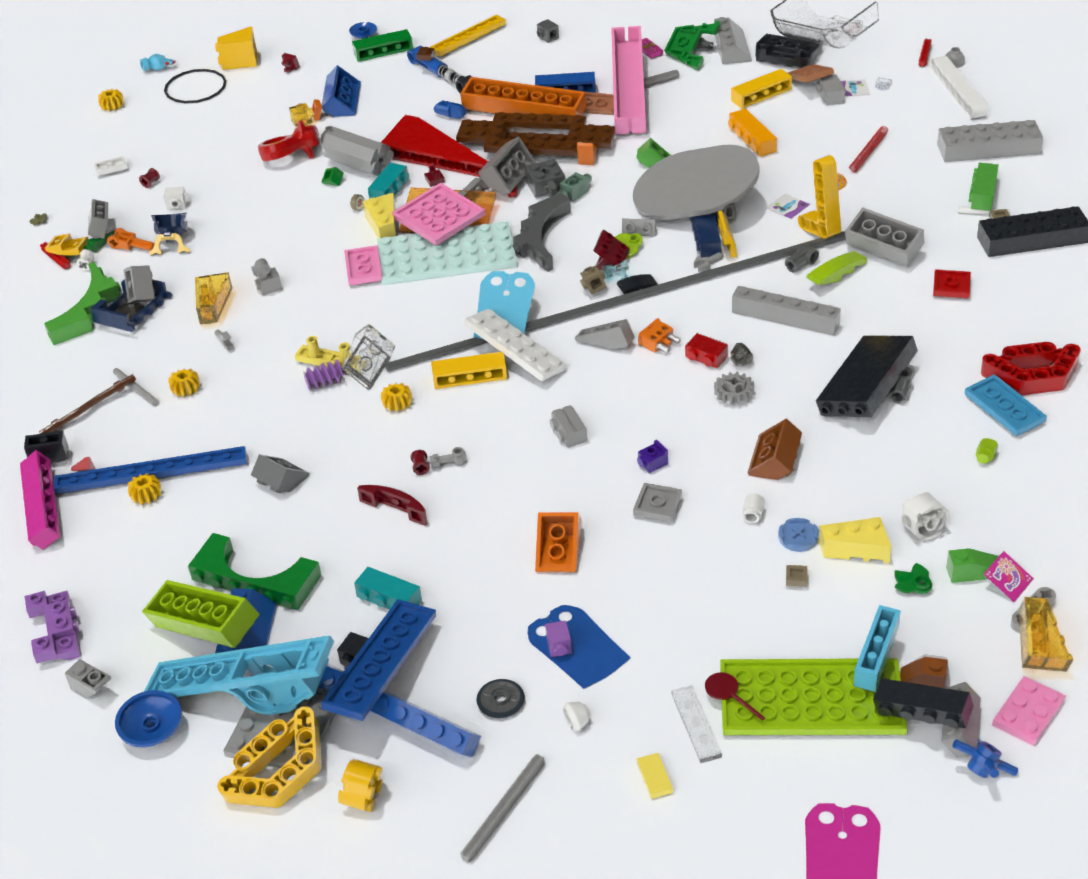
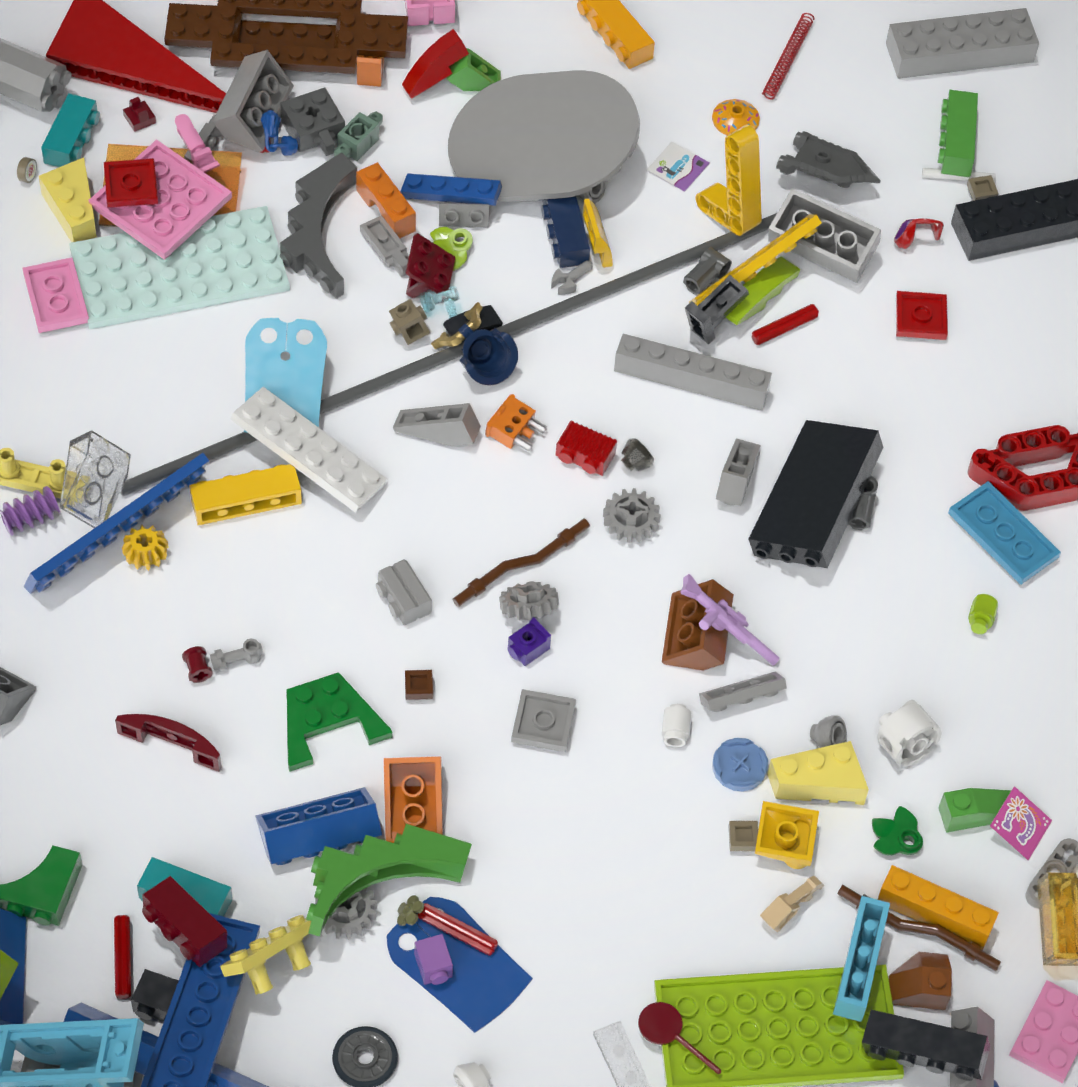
camera: 15 degrees left, 15 degrees up
(338, 626) = (122, 956): none -> red axle
(374, 382) = (124, 519): none -> blue plate
(381, 599) = (184, 921): none -> dark red brick
(419, 202) = (130, 183): none -> red plate
(432, 619) = (261, 949): none -> light yellow plate
(467, 189) = (200, 155): none -> bright pink piece
(489, 556) = (318, 823): none -> blue slope
(500, 605) = (346, 918): none -> light grey gear
(505, 490) = (325, 707): none -> green wing
(516, 176) = (271, 123): none -> blue piece
(524, 574) = (411, 855): none -> bright green arch
(545, 610) = (409, 911): none -> olive plant
(571, 478) = (418, 684): none -> reddish brown plate
(579, 623) = (458, 929): none -> red axle
(583, 213) = (379, 190): none -> orange arch
(583, 241) = (386, 243): none -> light grey hinge
(616, 213) = (451, 189): none -> blue plate
(621, 425) = (478, 586): none -> reddish brown bar
(628, 147) = (434, 64): none -> red slope
(642, 296) = (486, 354): none -> dark blue helmet
(655, 430) = (528, 600): none -> light grey gear
(792, 440) = (724, 617): none -> lavender piece
(802, 273) = (715, 308): none -> black bracket
(804, 490) = (743, 691): none -> light grey plate
(811, 366) = (737, 472): none -> light grey slope
(823, 619) = (787, 906): none -> tan piece
(828, 253) = (767, 255): none -> yellow plate
(829, 574) = (787, 834): none -> yellow slope
(853, 287) = (785, 324): none -> red axle
(865, 511) = (829, 731): none -> light grey brick
(888, 201) = (826, 162): none -> dark grey shield
(941, 624) = (937, 905): none -> light orange brick
(943, 241) = (906, 232): none -> red piece
(965, 654) = (971, 950): none -> reddish brown bar

